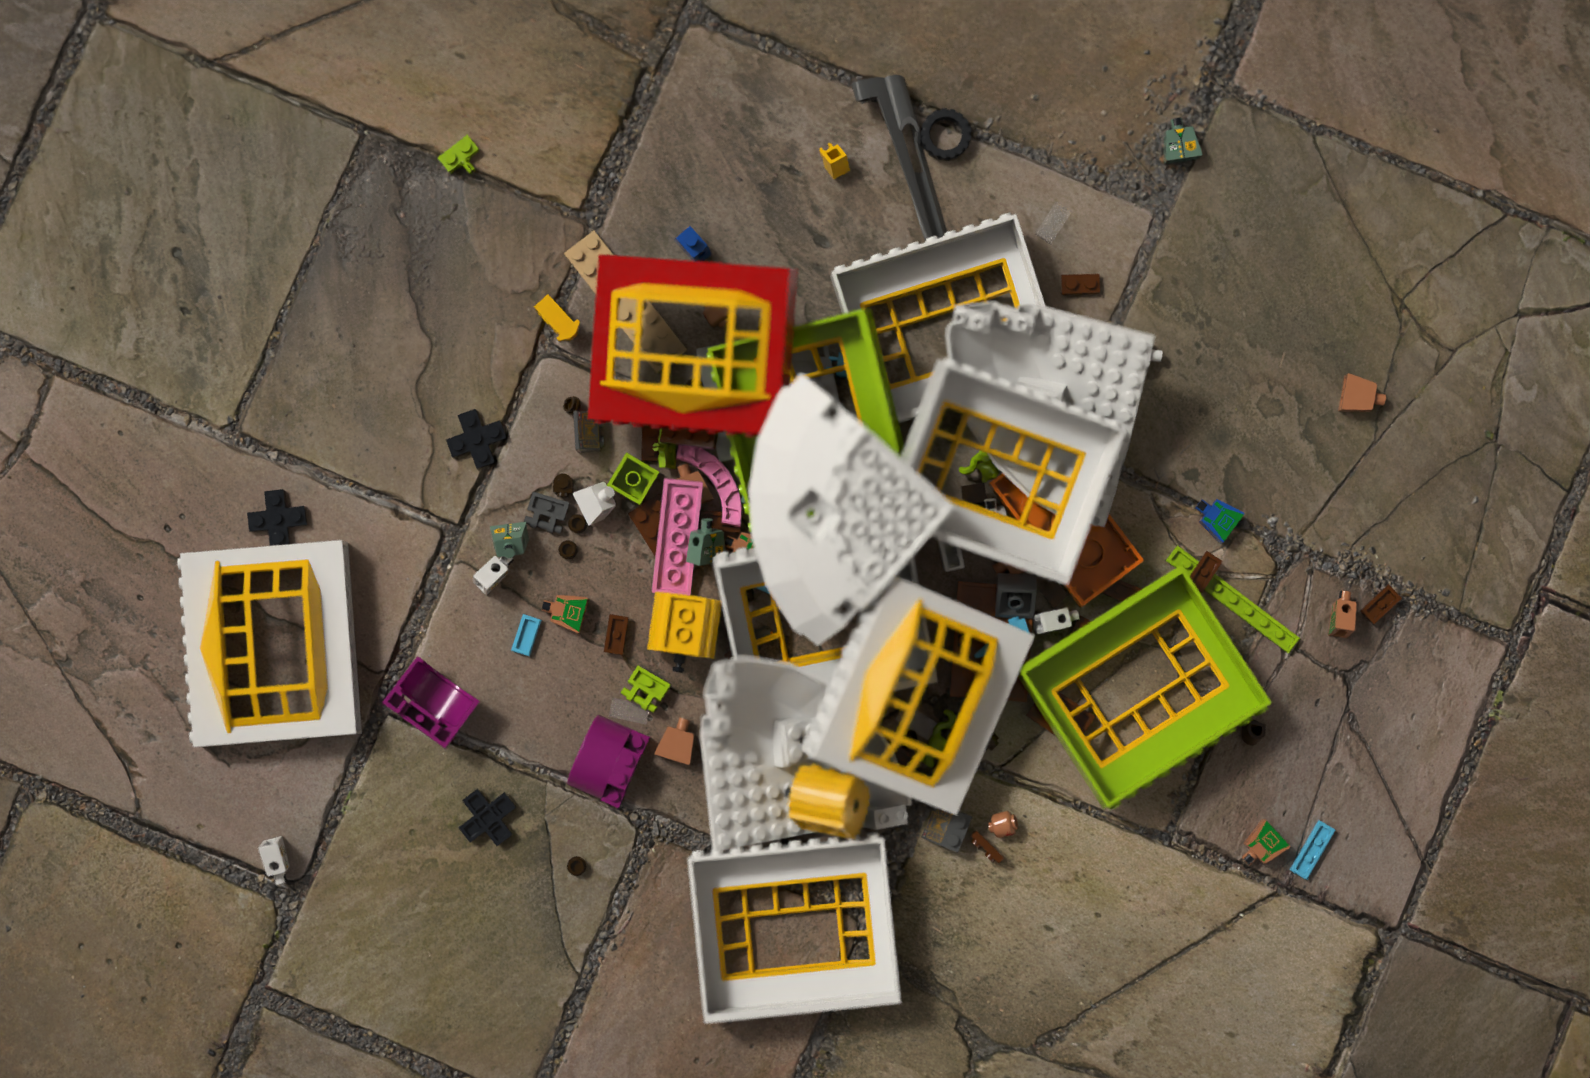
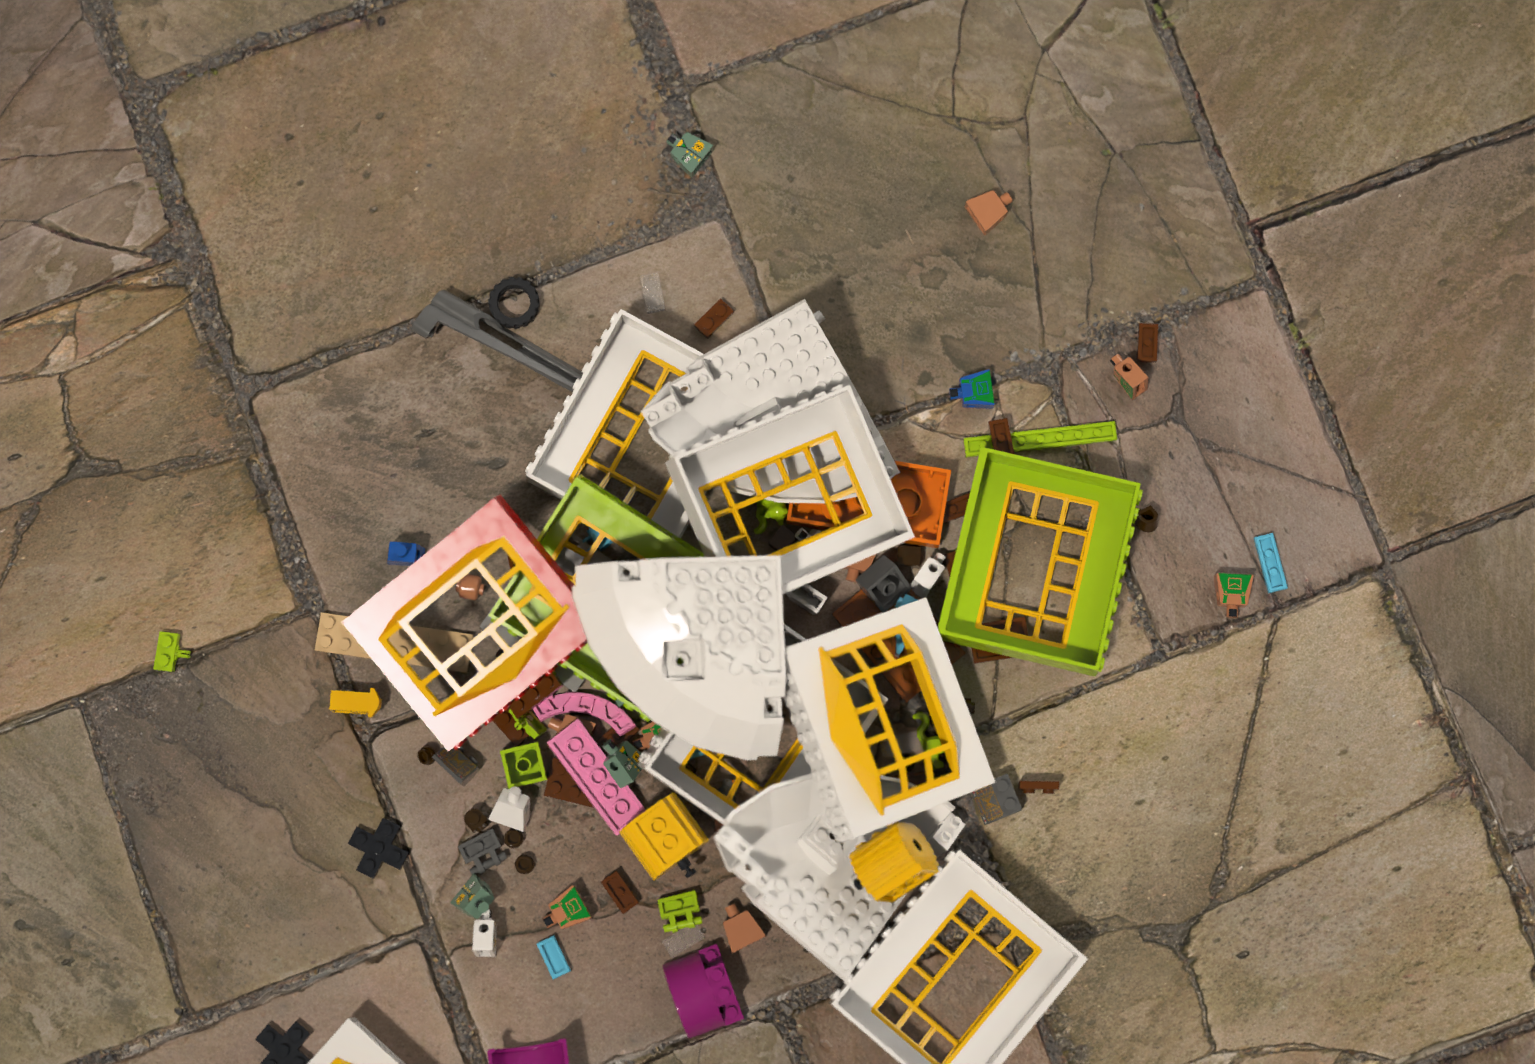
camera: 45 degrees left, 5 degrees down
(835, 160) = (451, 396): yellow brick -> none
(1003, 824) = (1034, 758): nougat head -> none

